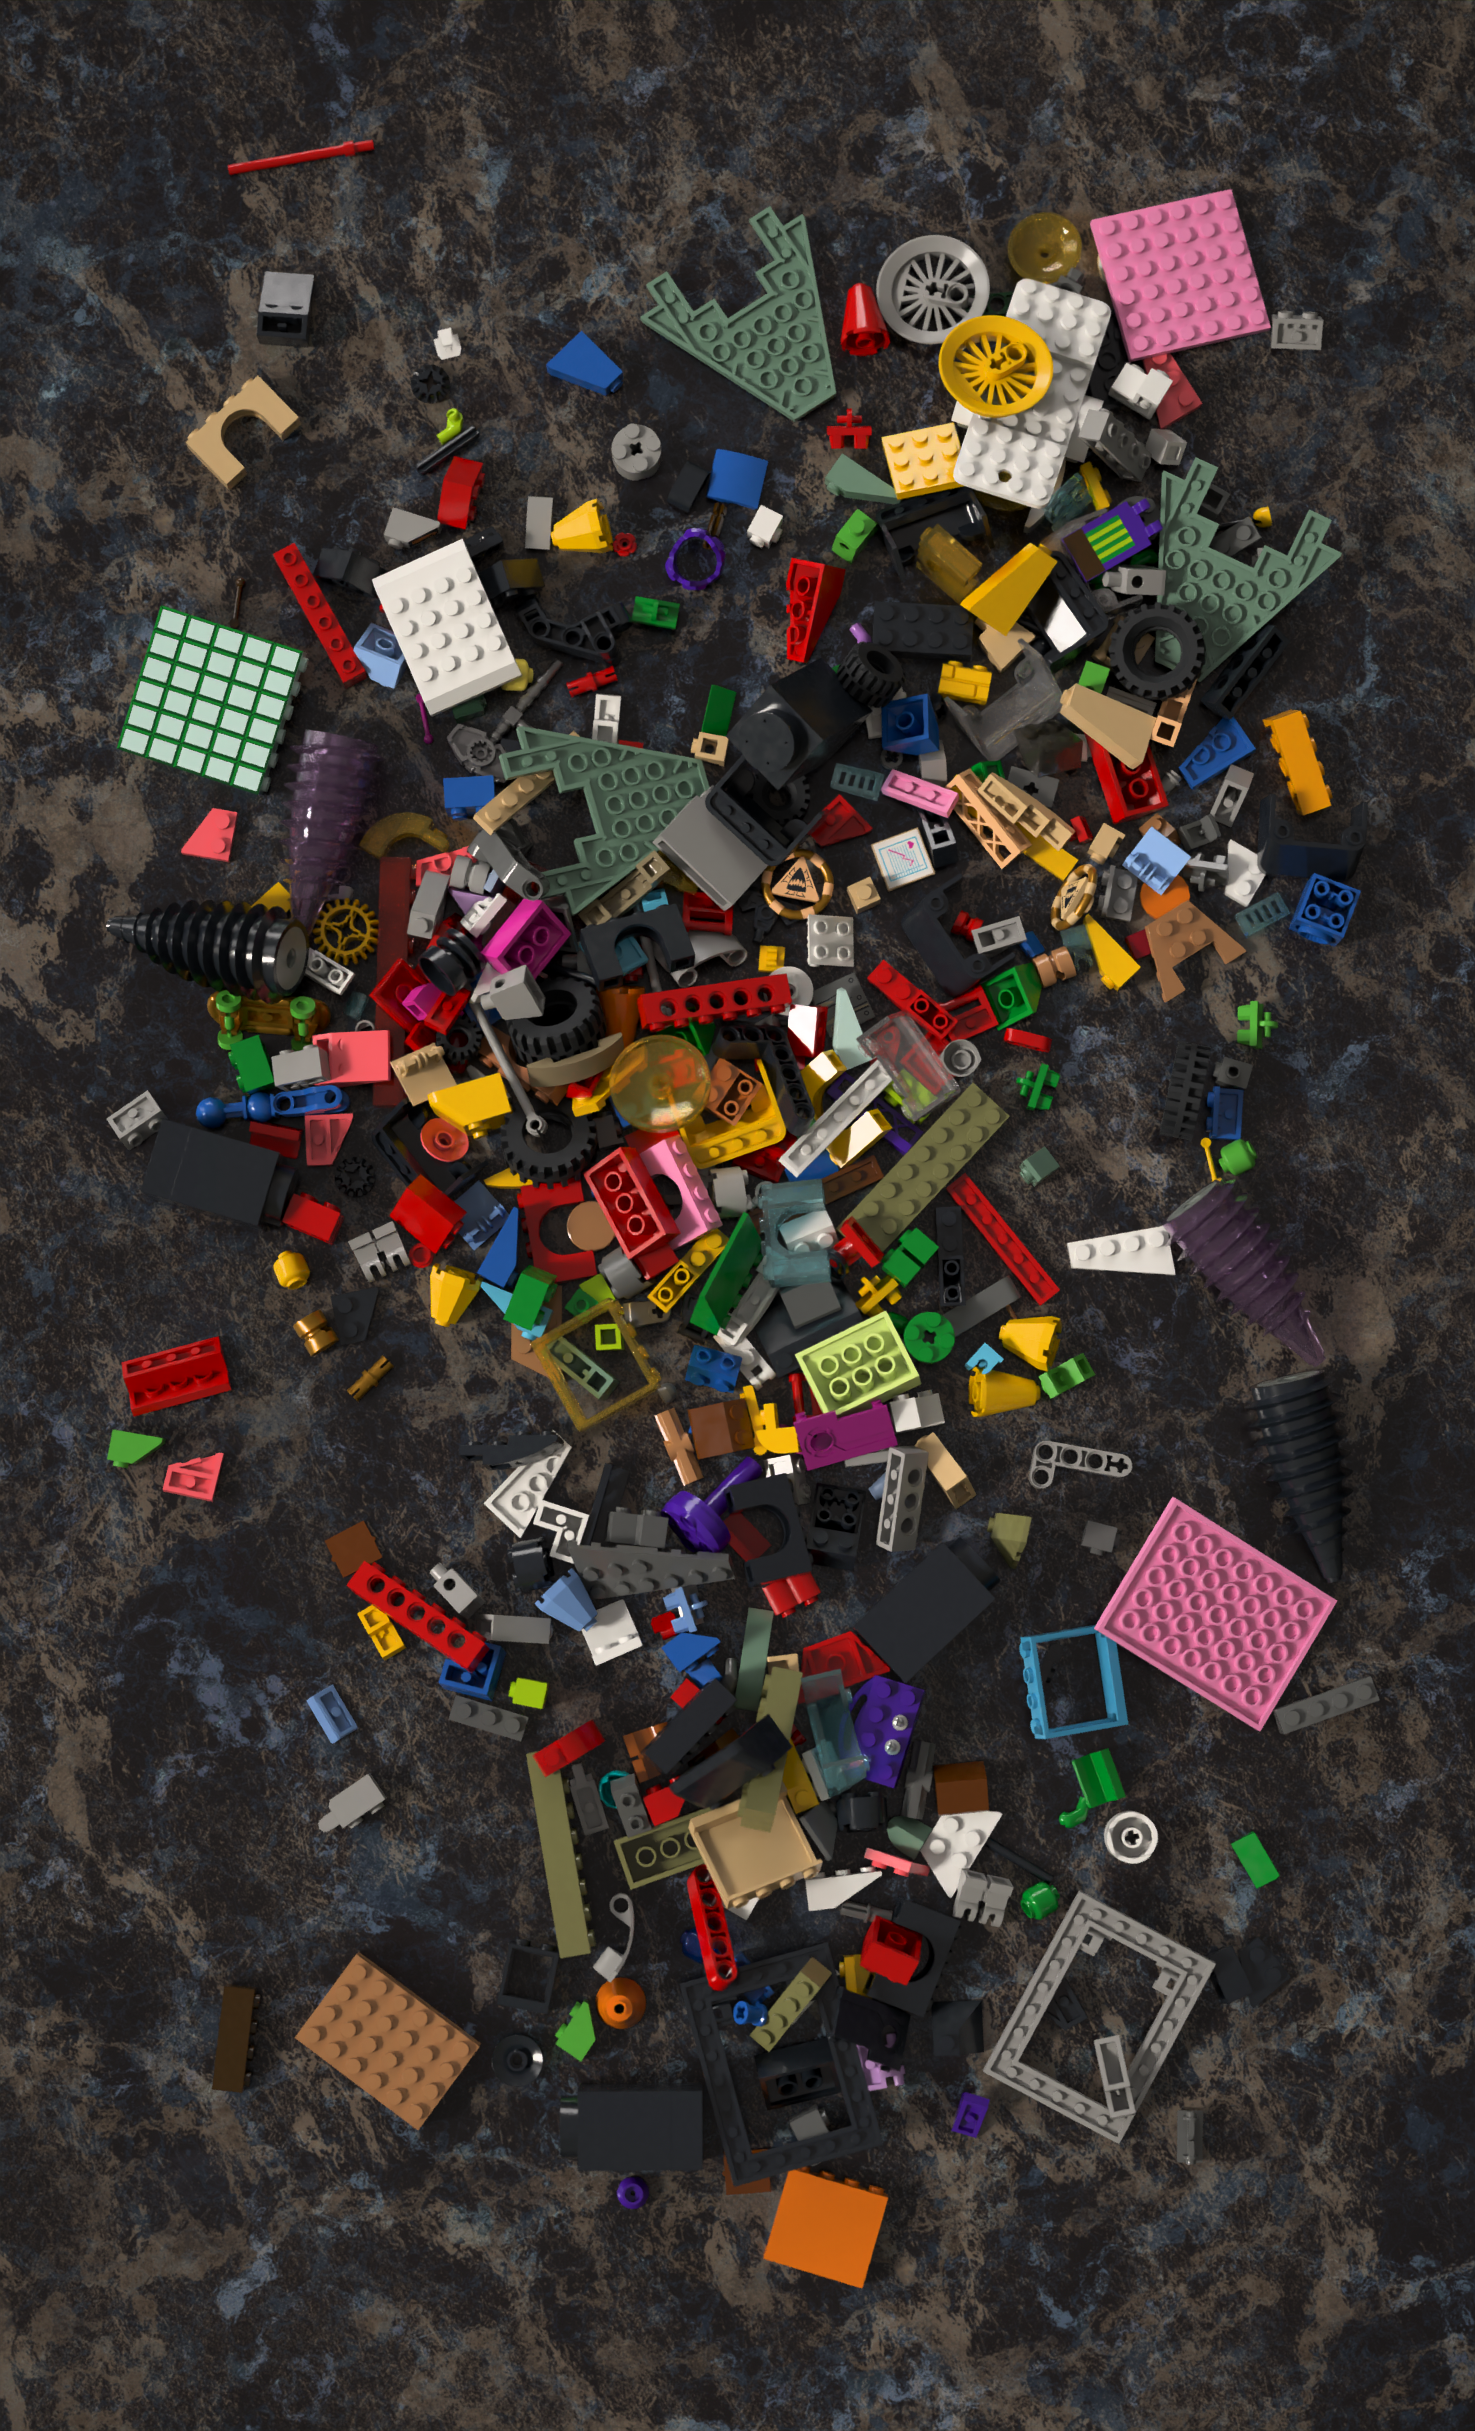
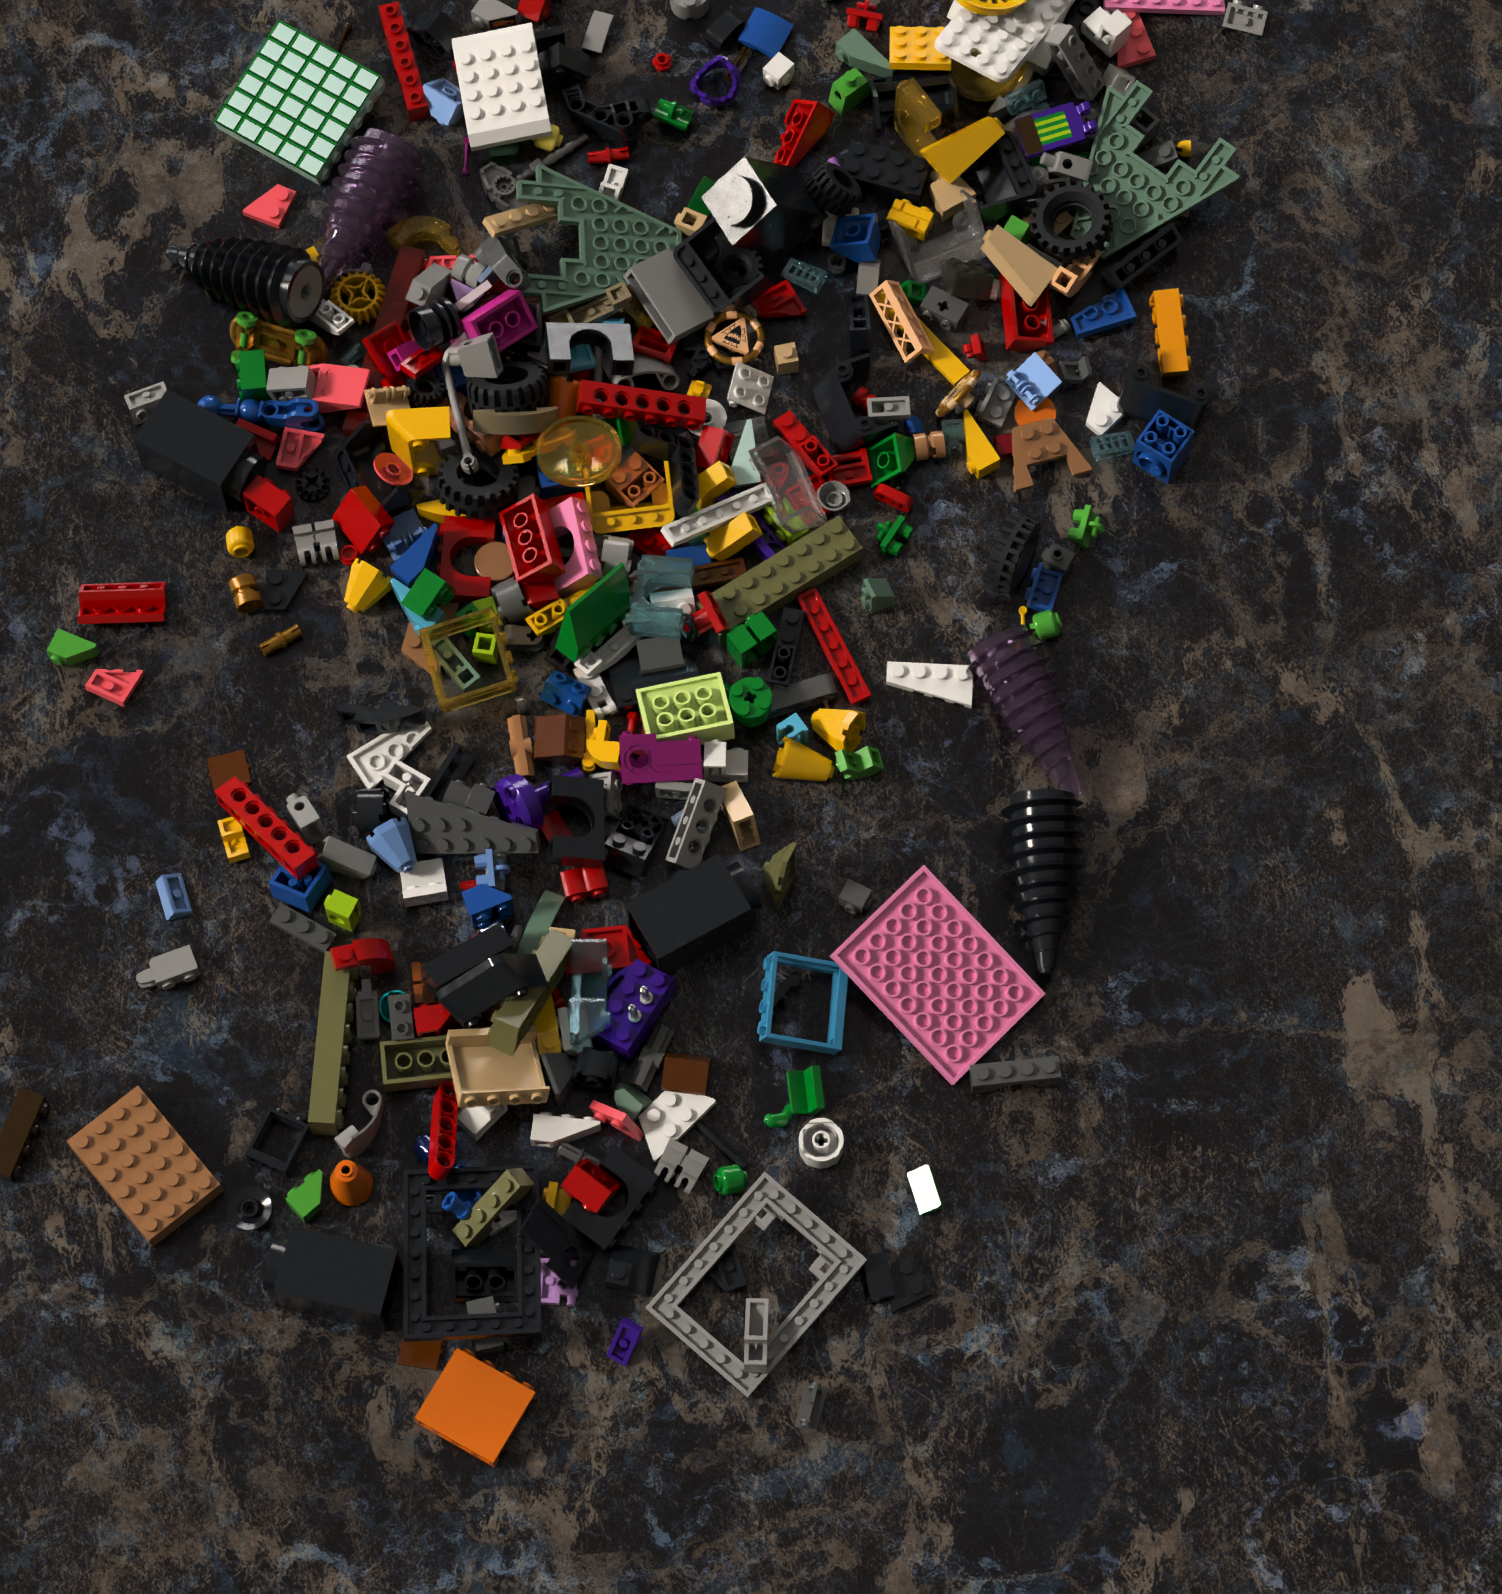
camera: 15 degrees right, 15 degrees down
(467, 795) = (478, 207): blue brick -> none
(584, 530) = (632, 42): yellow cone -> none
(632, 2184) = (318, 1349): dark purple plate -> none
(874, 1292) = (728, 663): yellow hips -> none
(903, 859) = (826, 341): white tile -> none
(920, 793) = (852, 291): bright pink plate -> none
(1025, 809) = (935, 320): tan slope -> none
(1081, 1463) = (859, 827): light grey beam -> none
(1092, 479) = (1052, 91): yellow plate -> none
(1105, 844) = (995, 362): tan brick -> none
(1204, 872) = (1073, 400): dark grey hips -> none
(1231, 795) = (1108, 348): light grey slope -> none

